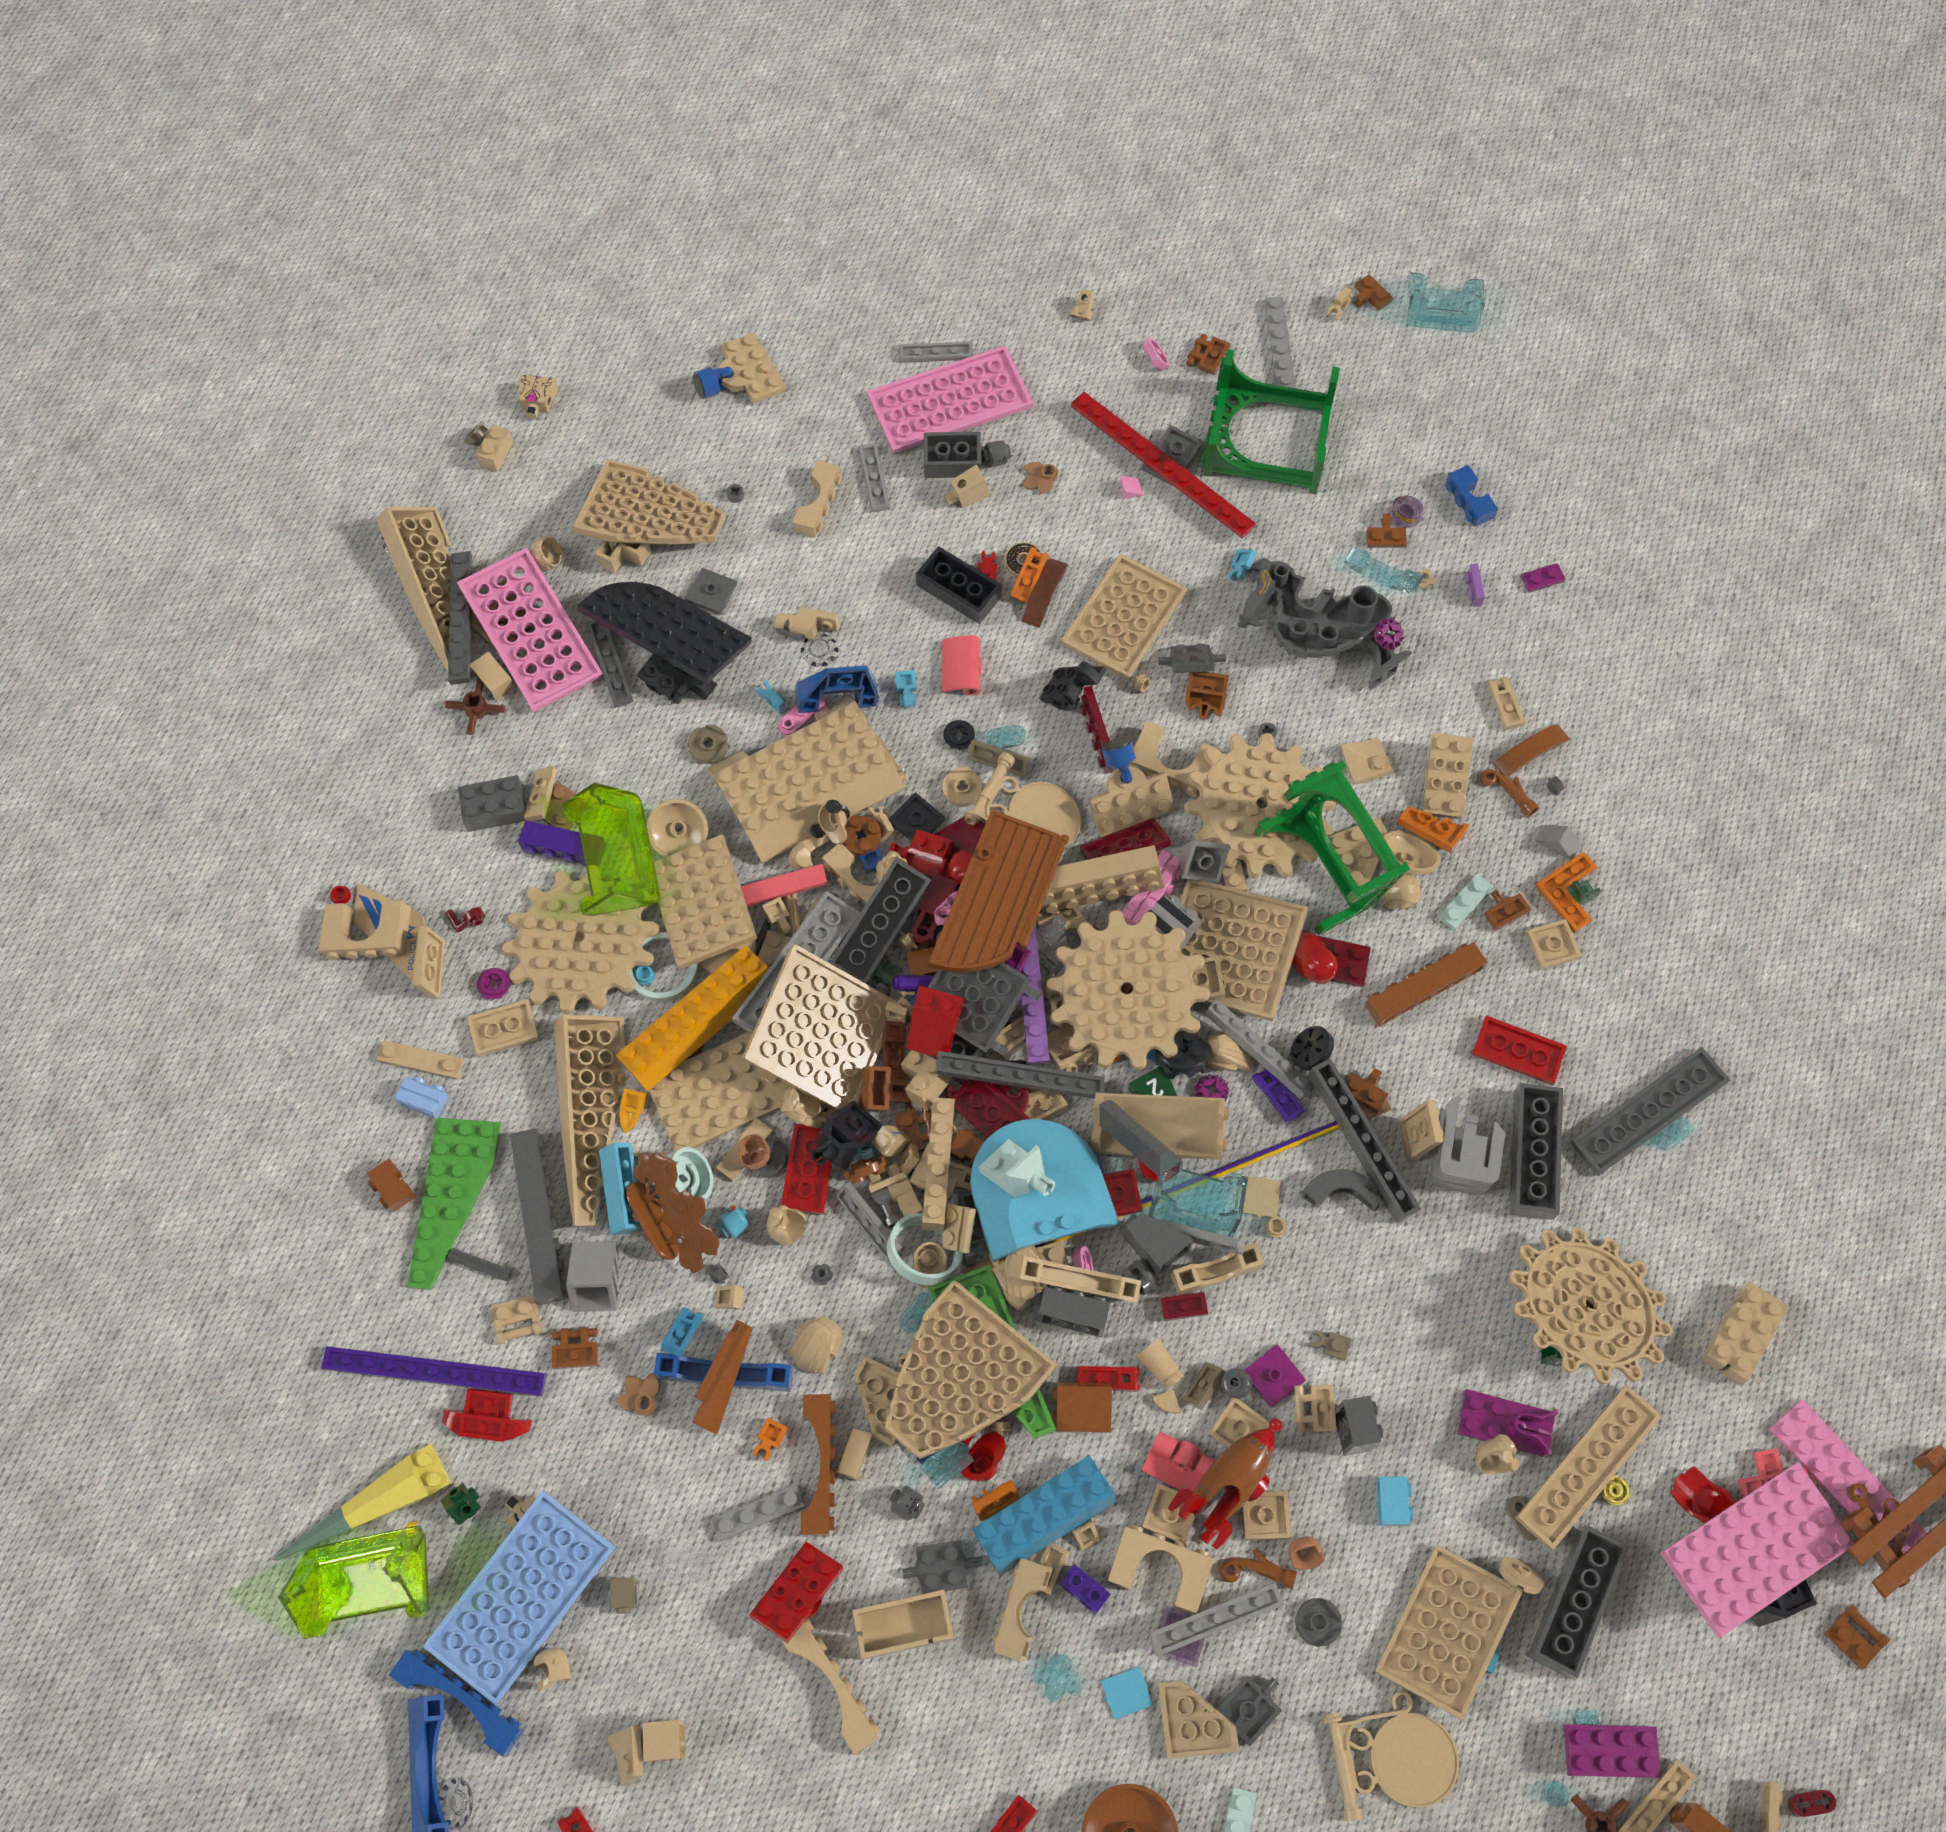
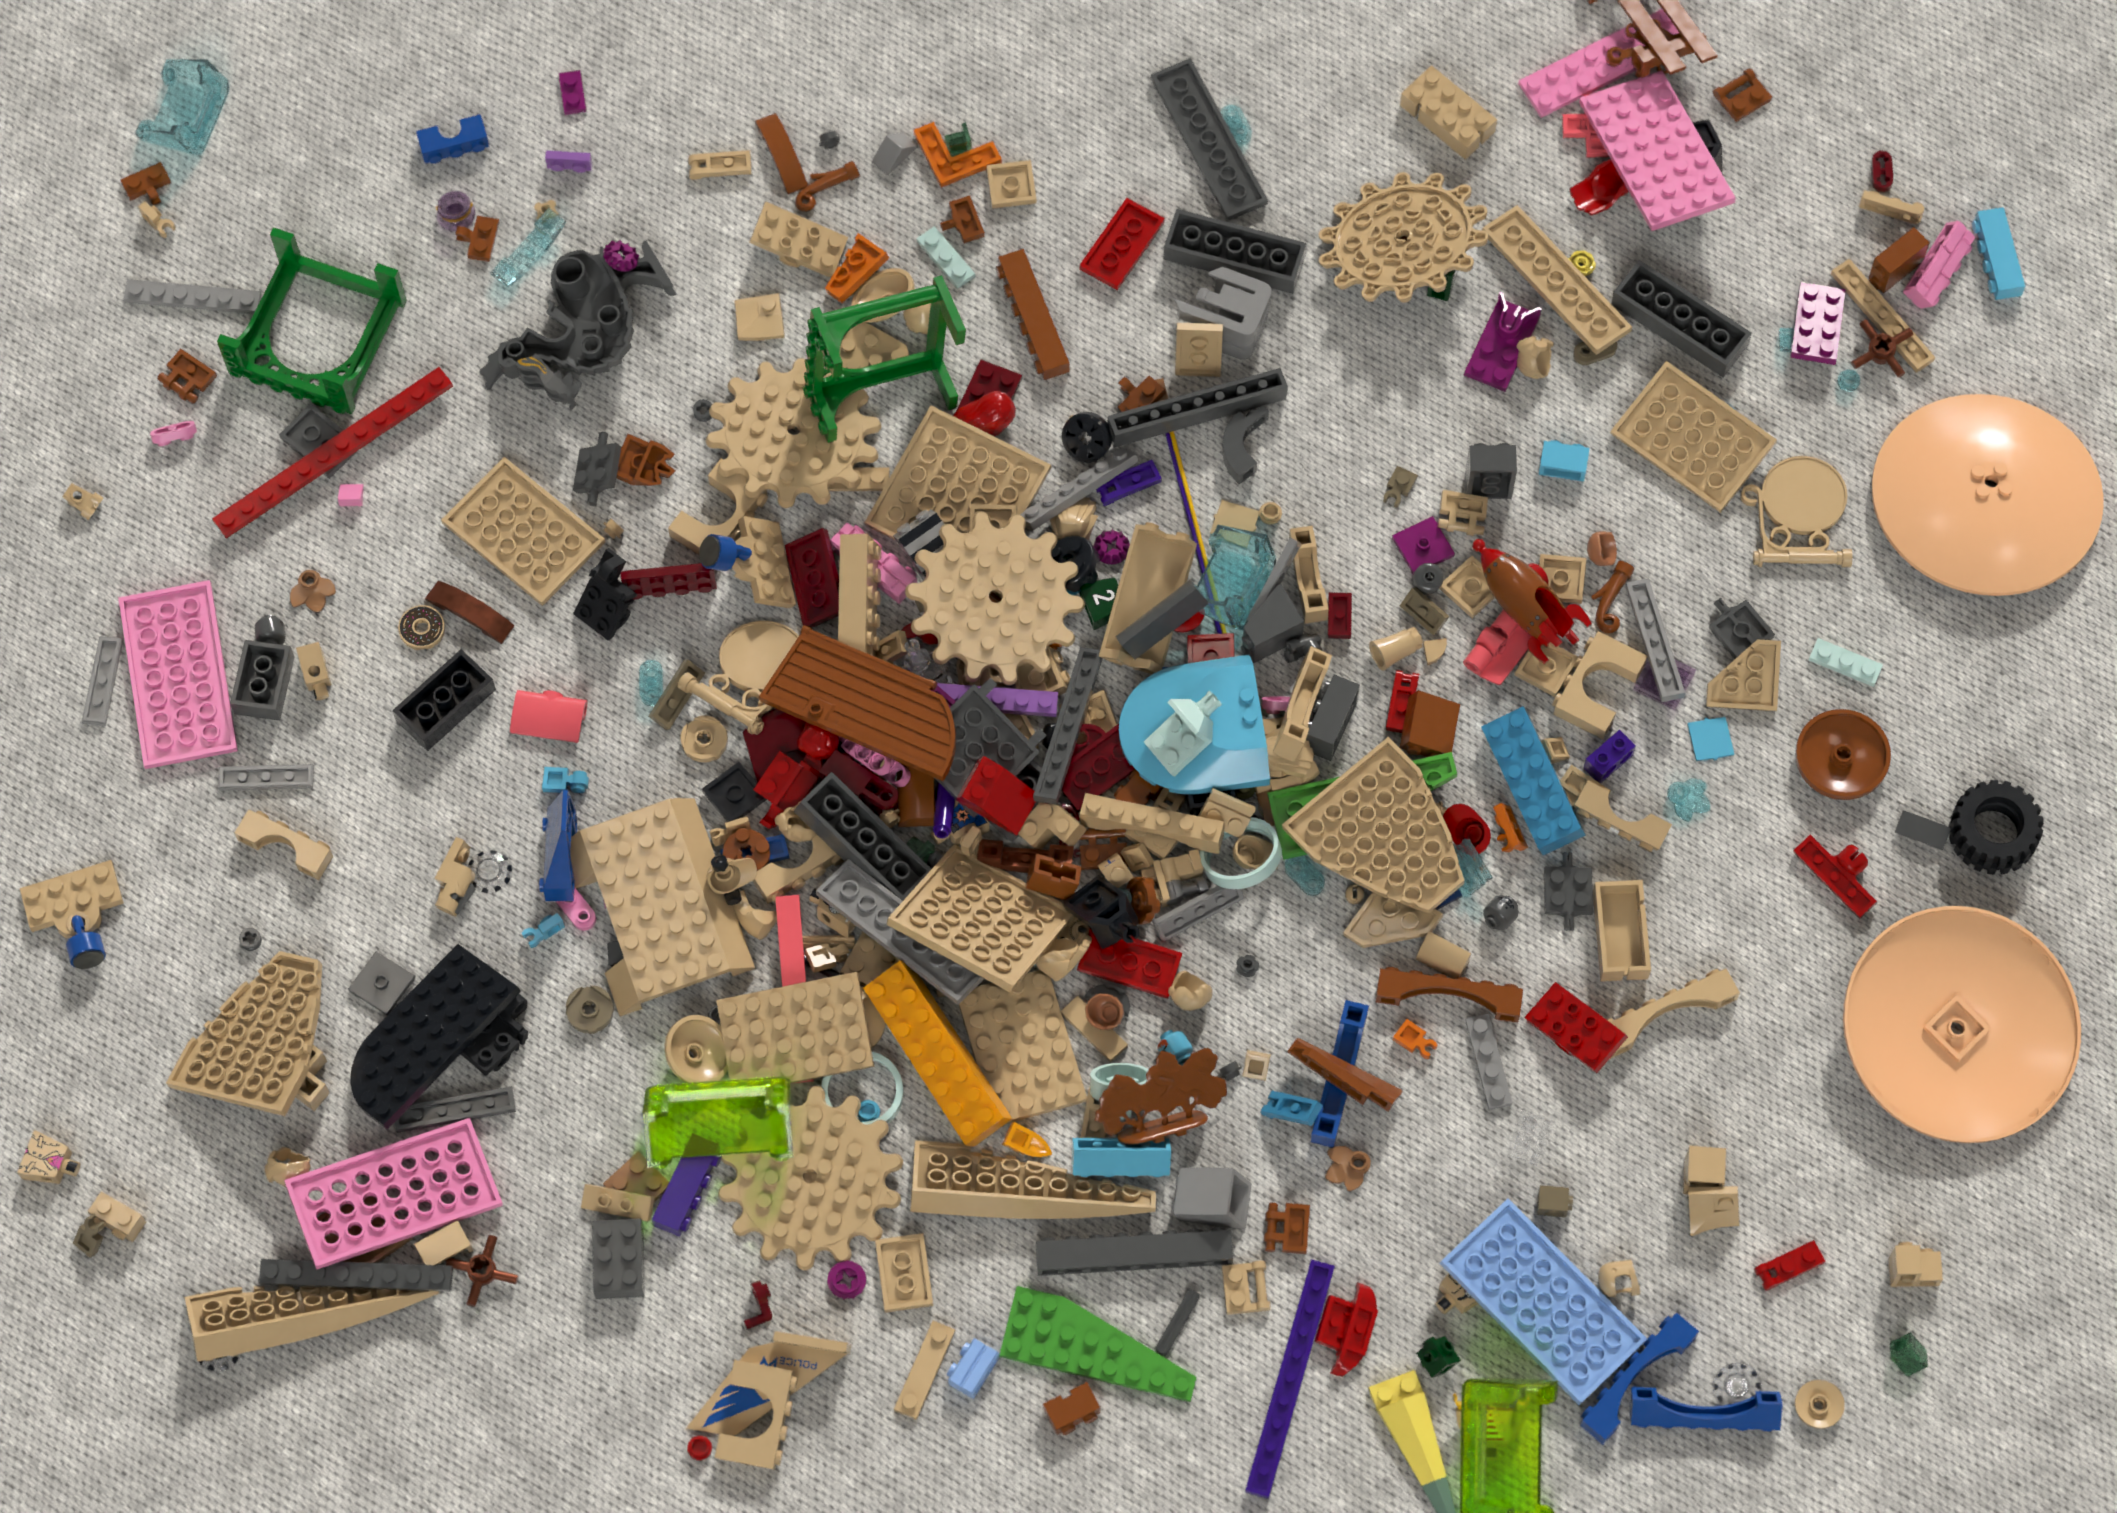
camera: 80 degrees left, 0 degrees up
(816, 1344) = (1323, 978): tan hair -> none
(965, 729) = (630, 725): black gear -> none
(987, 565) = (421, 669): red plate -> none
(1028, 576) = (448, 621): orange plate -> none
(1203, 860) = (853, 501): light grey slope -> none
(1242, 561) = (481, 393): medium azure plate -> none
(1311, 1622) = (1670, 559): dark grey tile -> none
(1522, 1574) = (1650, 361): tan plate -> none

